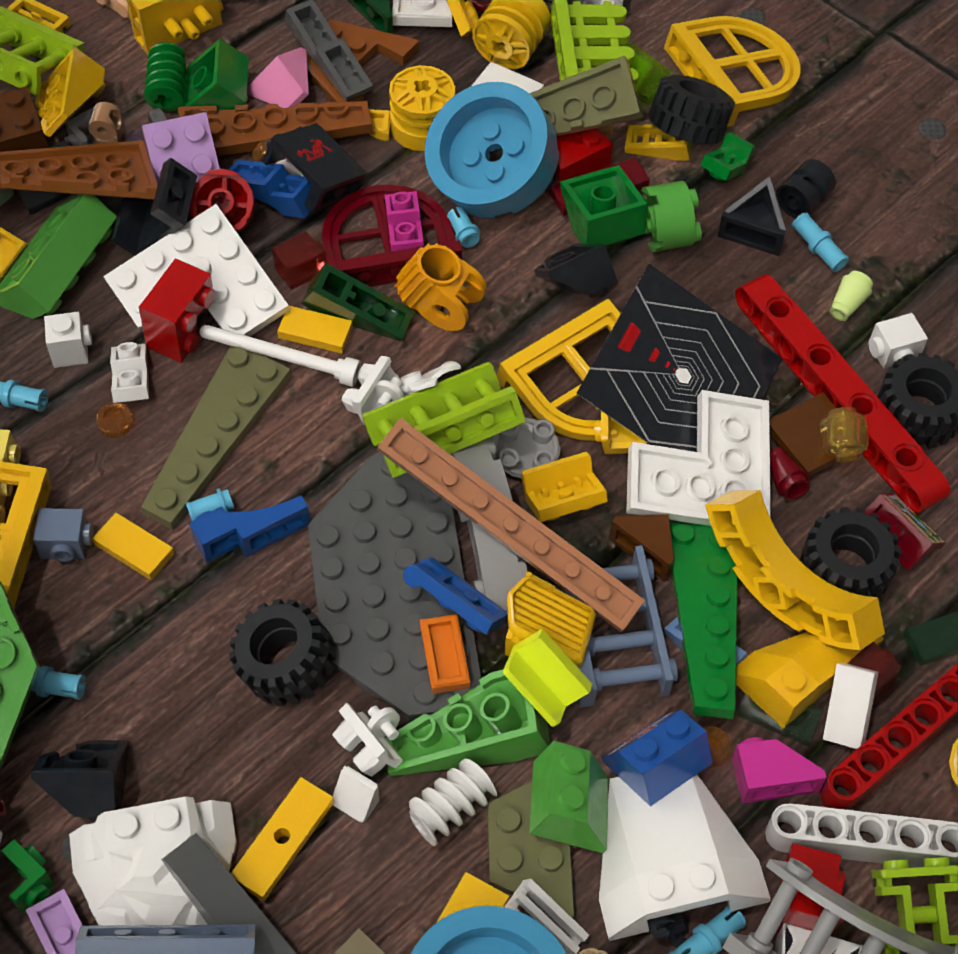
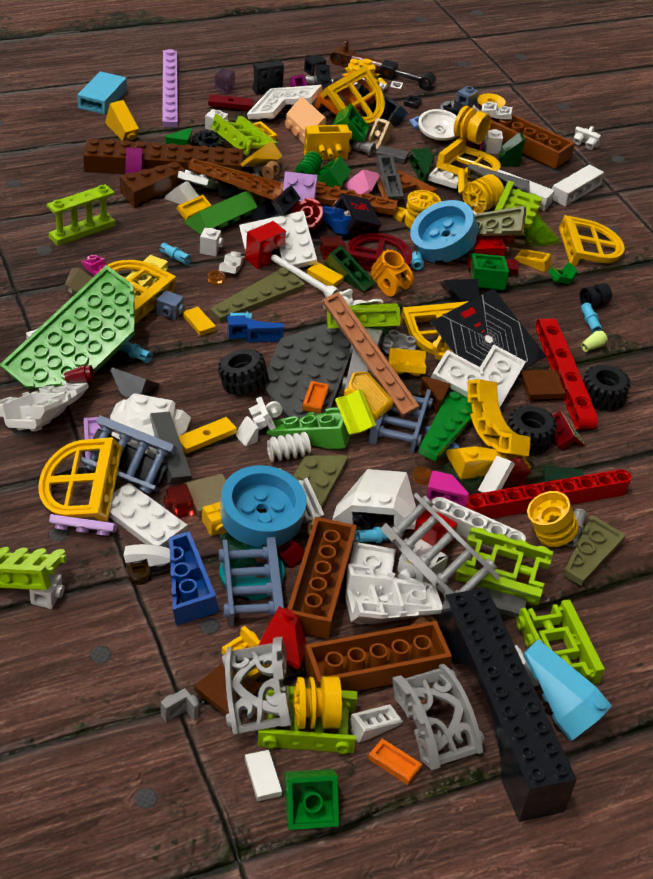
camera: 20 degrees right, 15 degrees down
(29, 865) = (91, 408): green bracket -> none
(404, 220) = (390, 242): dark pink slope -> none
(456, 595) = (330, 375): blue plate -> none
(569, 797) = (344, 462): bright green slope -> none
(661, 756) = (394, 461): blue slope -> none
(671, 216) = (518, 282): bright green brick -> none
(691, 109) = (553, 247): black tyre -> none
(755, 220) = (560, 298): black slope -> none
(788, 475) = (520, 395): dark red cone -> none
(844, 434) = (554, 382): clear yellow head -> none
(896, 339) = (607, 358): white brick -> none

